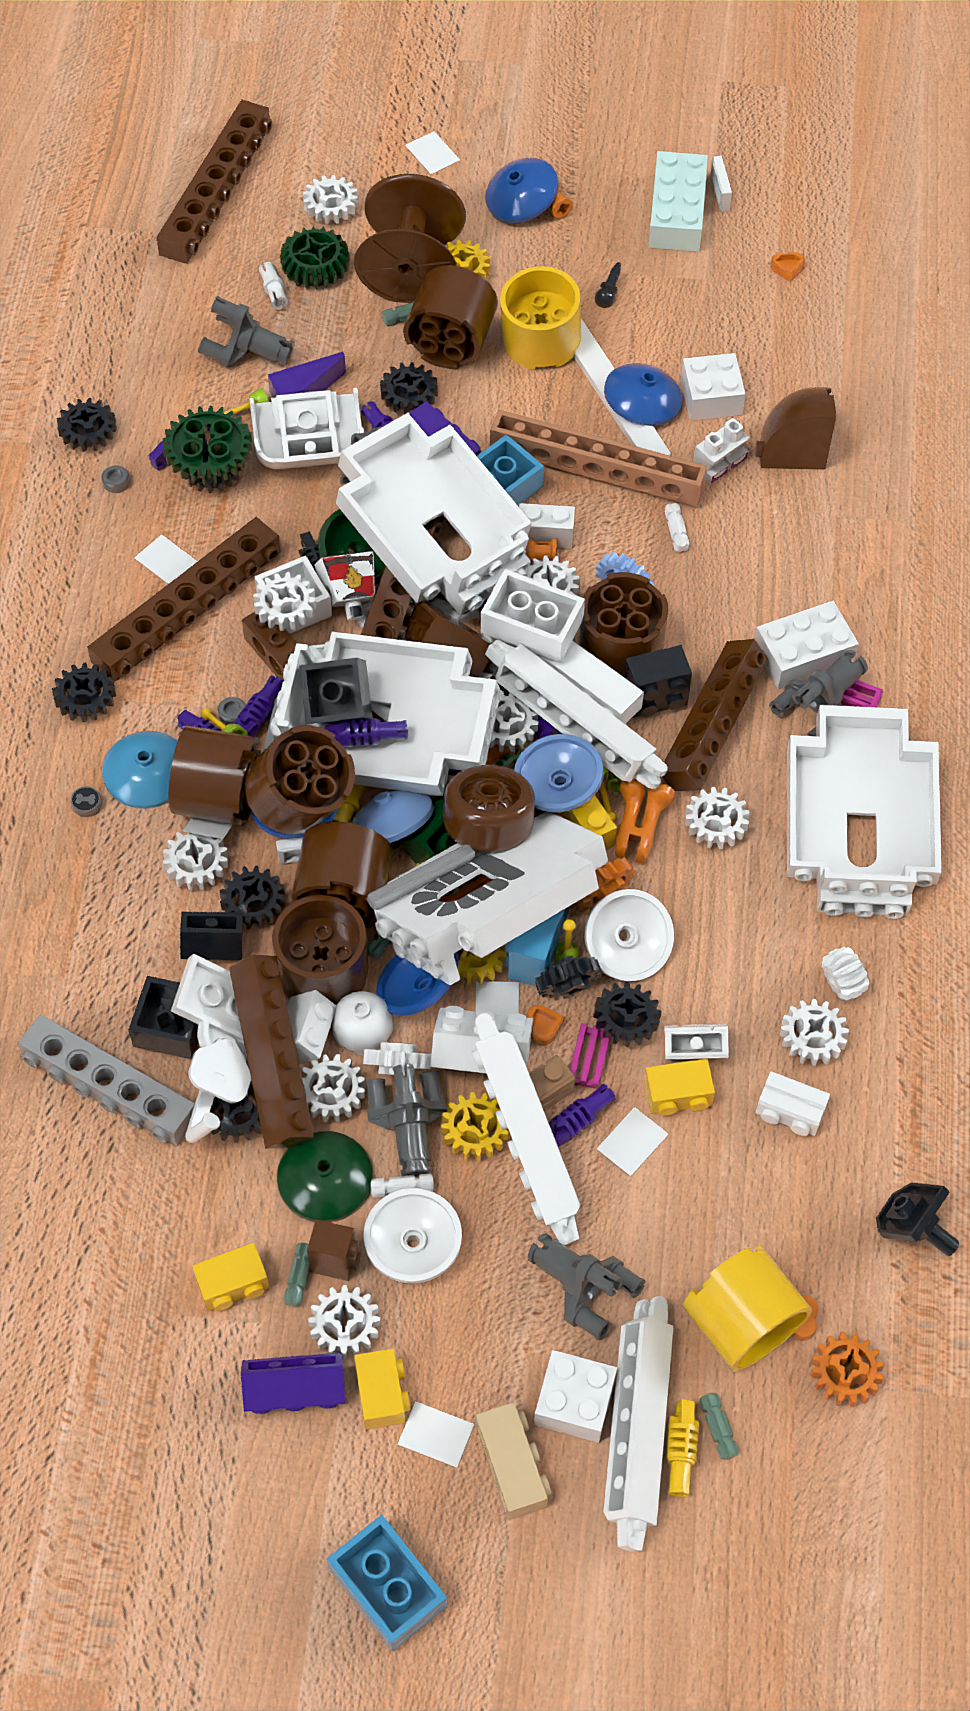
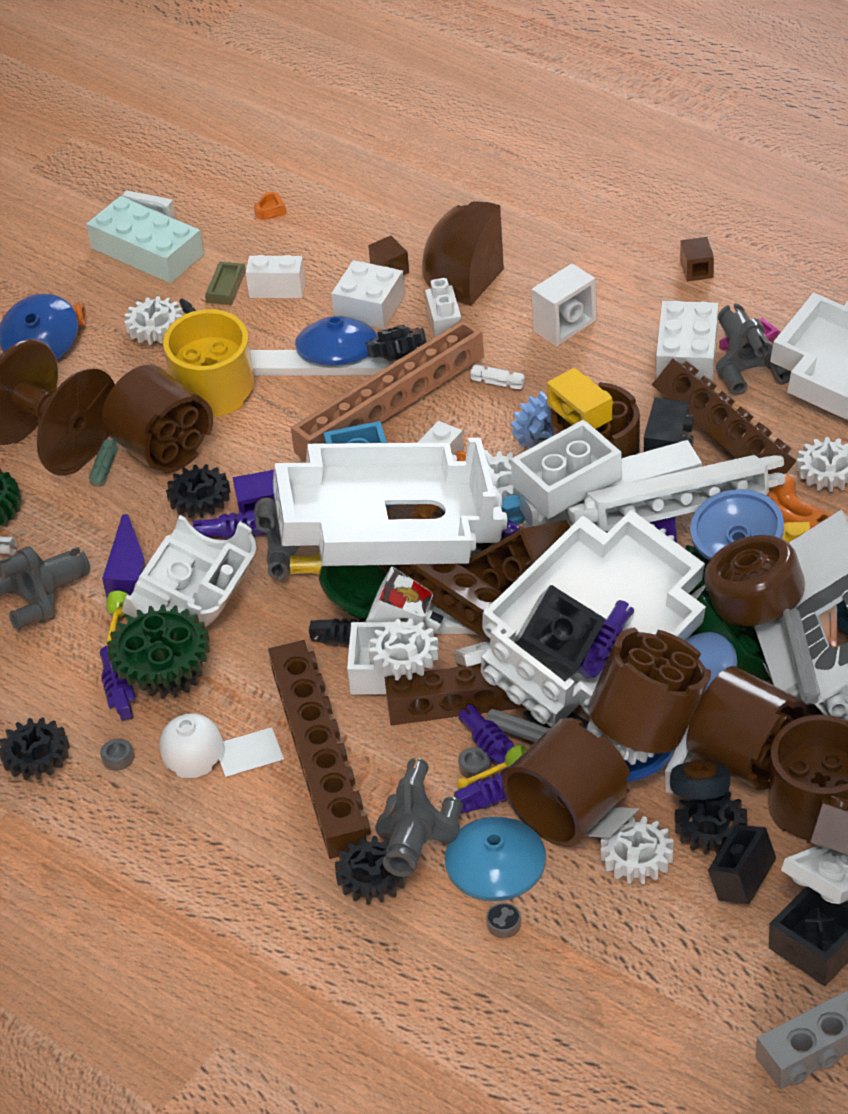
camera: 55 degrees left, 15 degrees down
(129, 696) = (412, 821): none -> dark grey wheel
(144, 519) = (191, 745): none -> white cylinder
(272, 867) = (700, 780): none -> black wheel
(586, 258) = (151, 319): none -> white gear
(619, 588) = (579, 399): none -> yellow brick
(654, 433) = (395, 342): none -> black gear
(669, 283) = (225, 283): none -> olive tile
(691, 312) = (275, 276): none -> white brick
(770, 379) = (389, 254): none -> reddish brown brick
(783, 530) = (564, 304): none -> white brick
(926, 605) = (697, 259): none -> reddish brown brick

